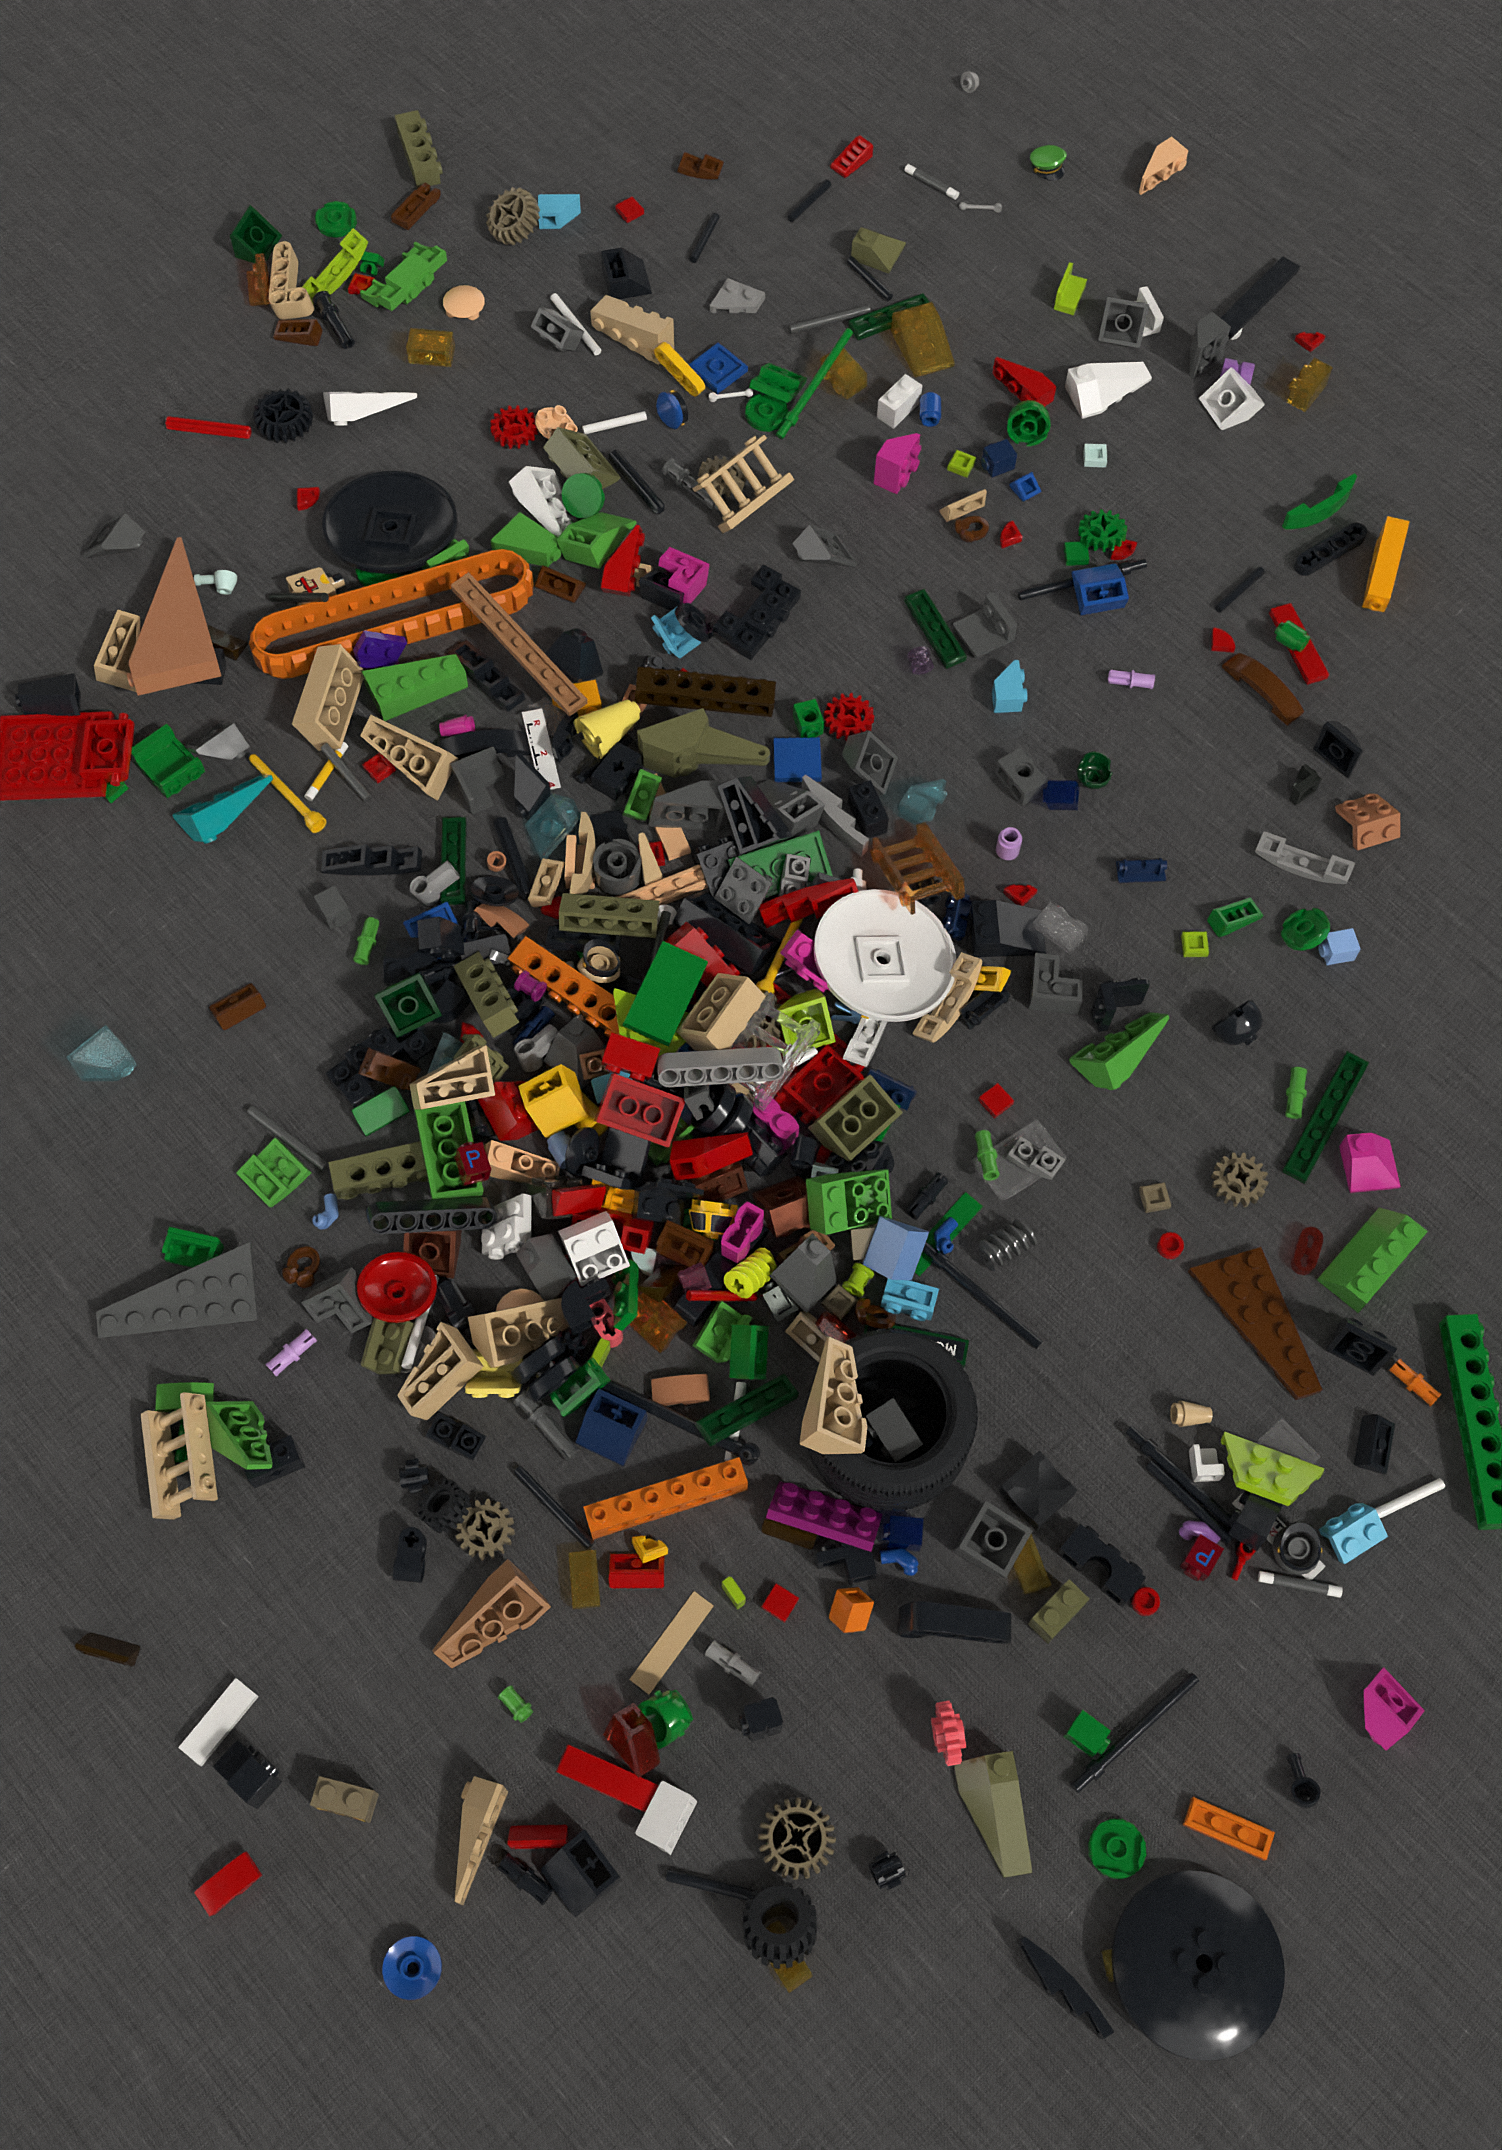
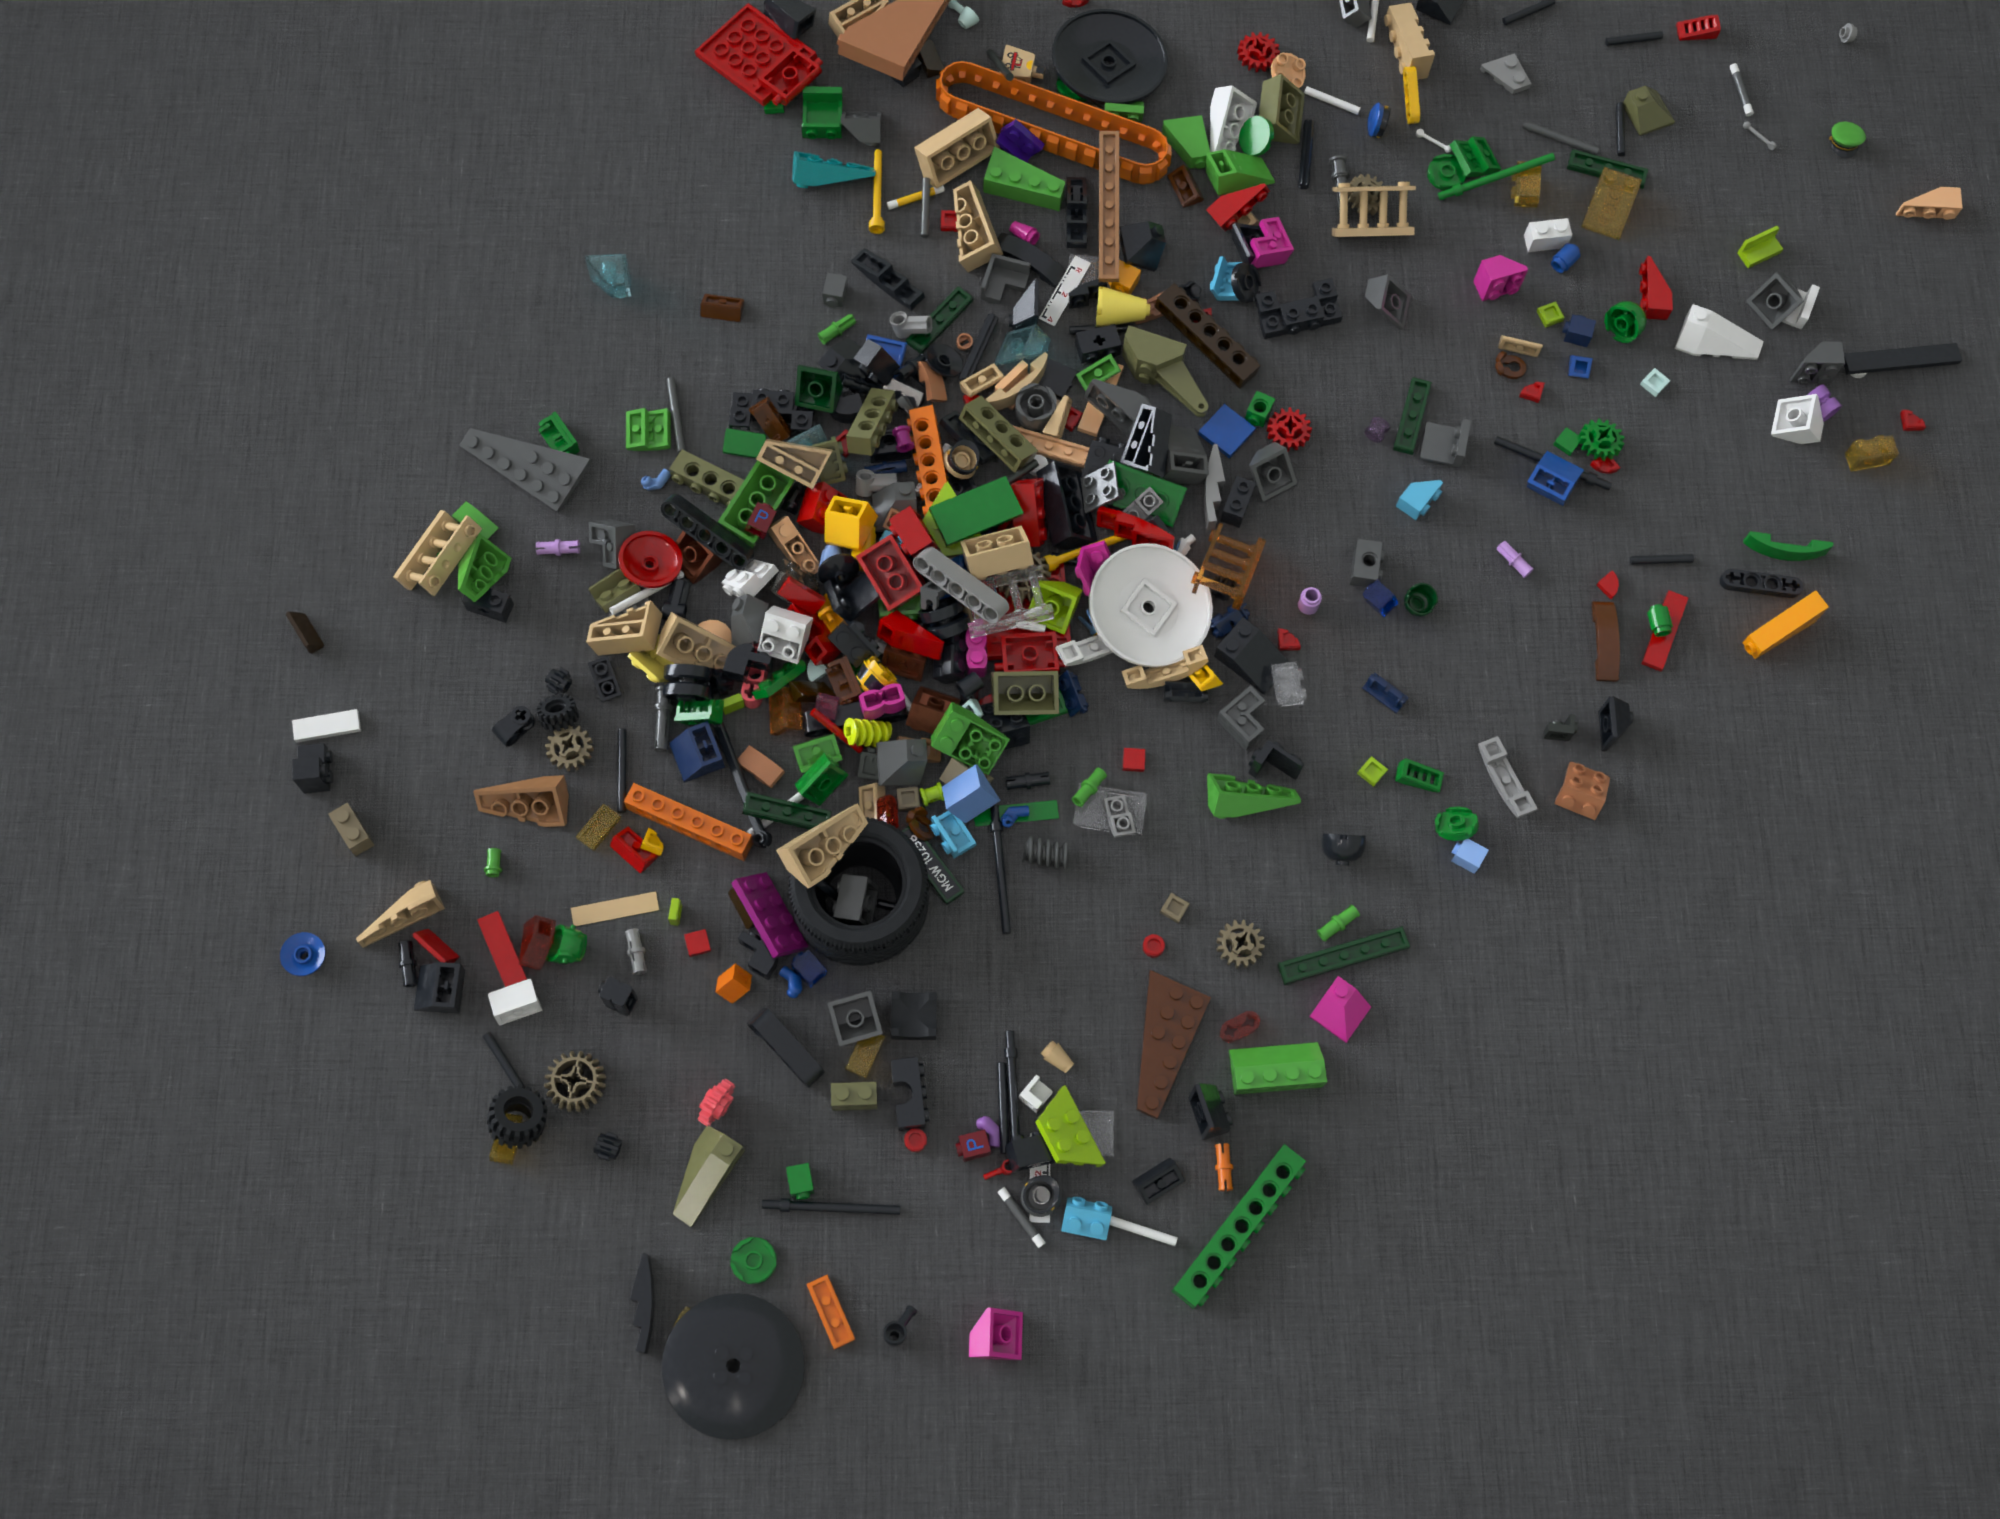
camera: 40 degrees right, 5 degrees up
(228, 1883) = (250, 819): red slope -> none
(306, 1277) = (606, 509): reddish brown piece -> none
(718, 368) = (1443, 114): blue tile -> none
(921, 800) = (1280, 525): clear light blue slope -> none

